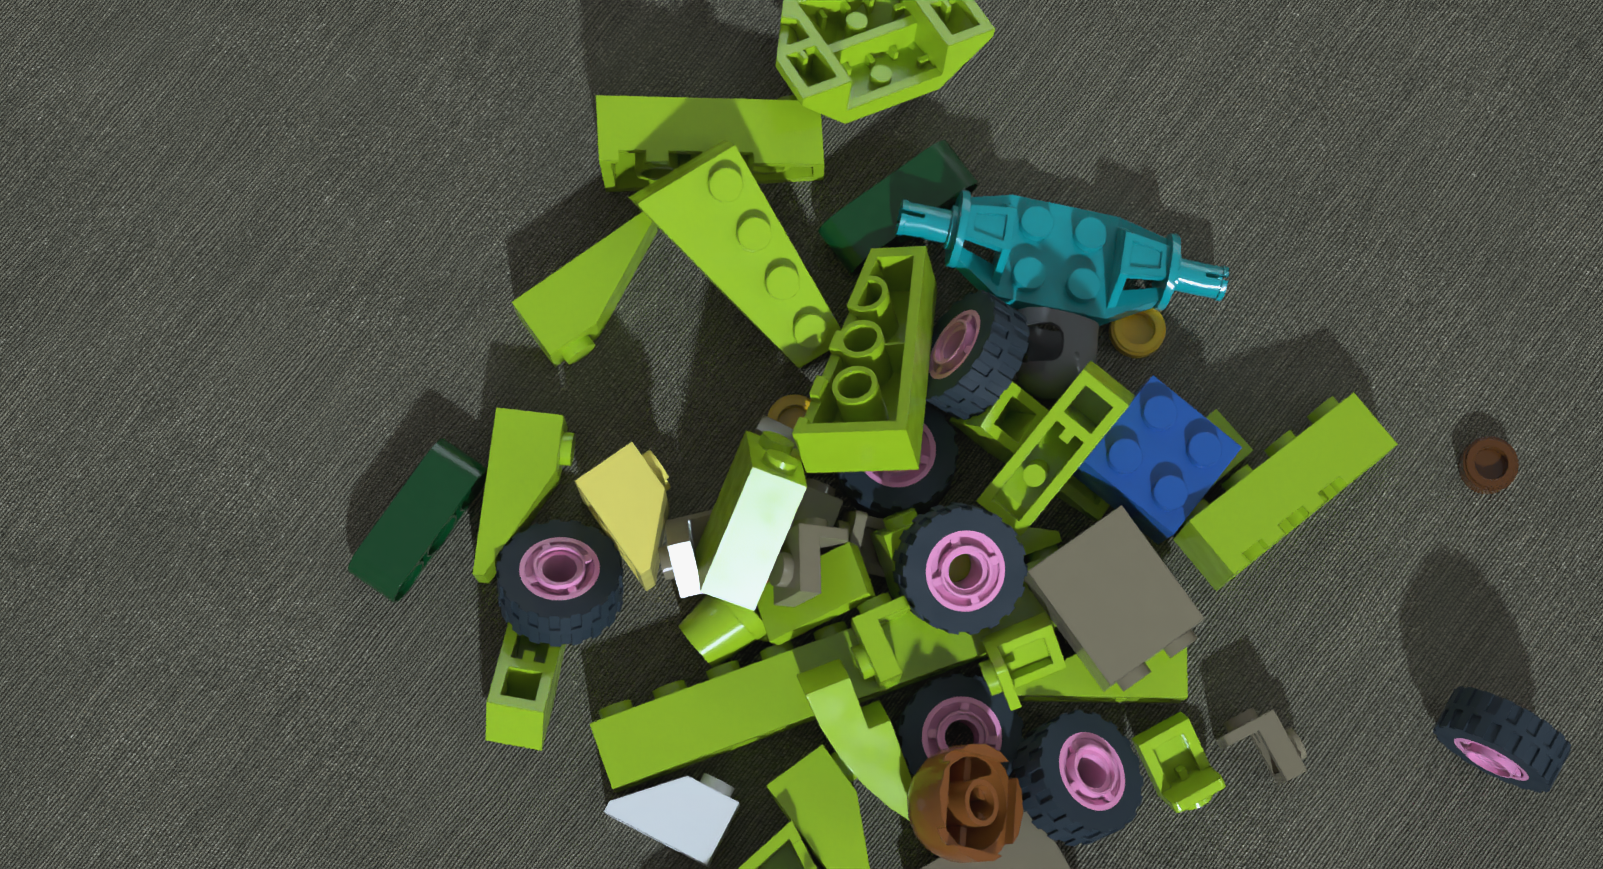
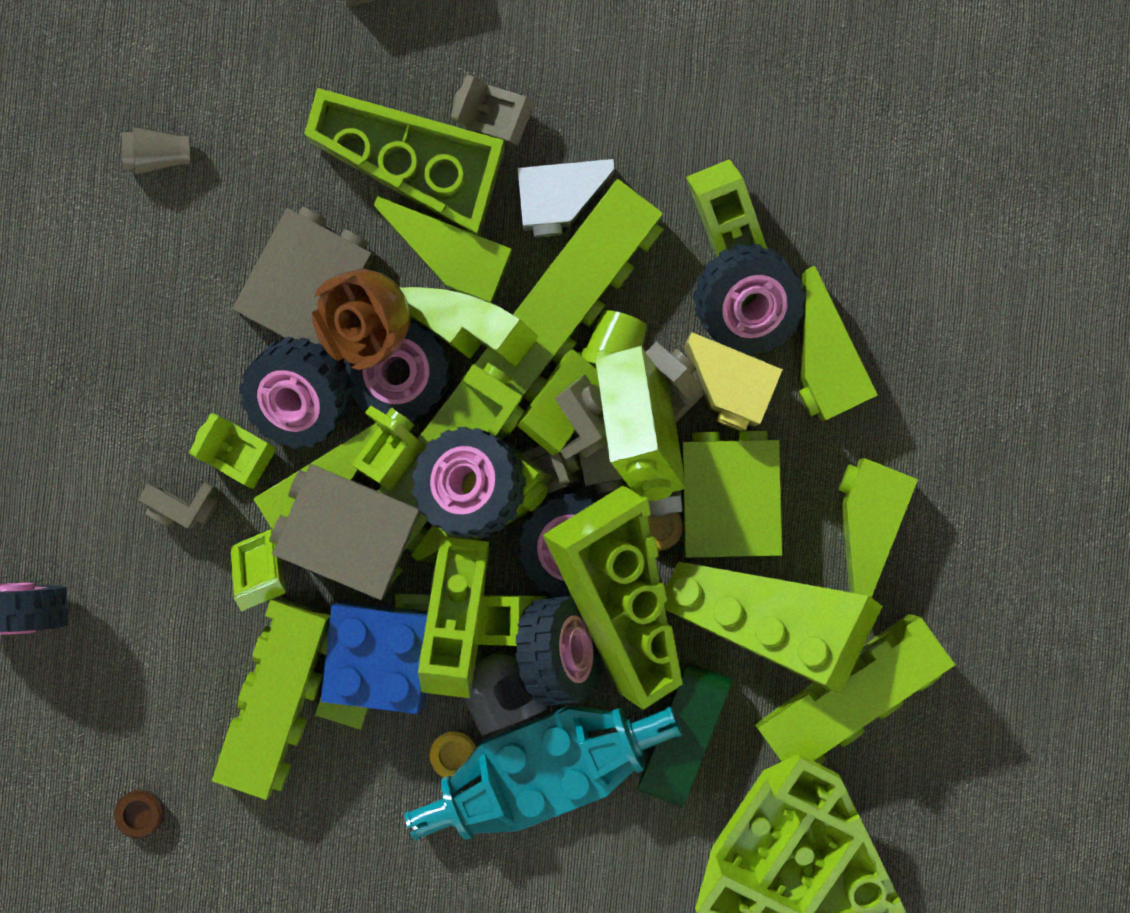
camera: 150 degrees right, 10 degrees up
(418, 520) = (880, 283): dark green beam -> none
(704, 402) = (731, 496): none -> lime brick
(1231, 619) = (256, 571): none -> lime tile

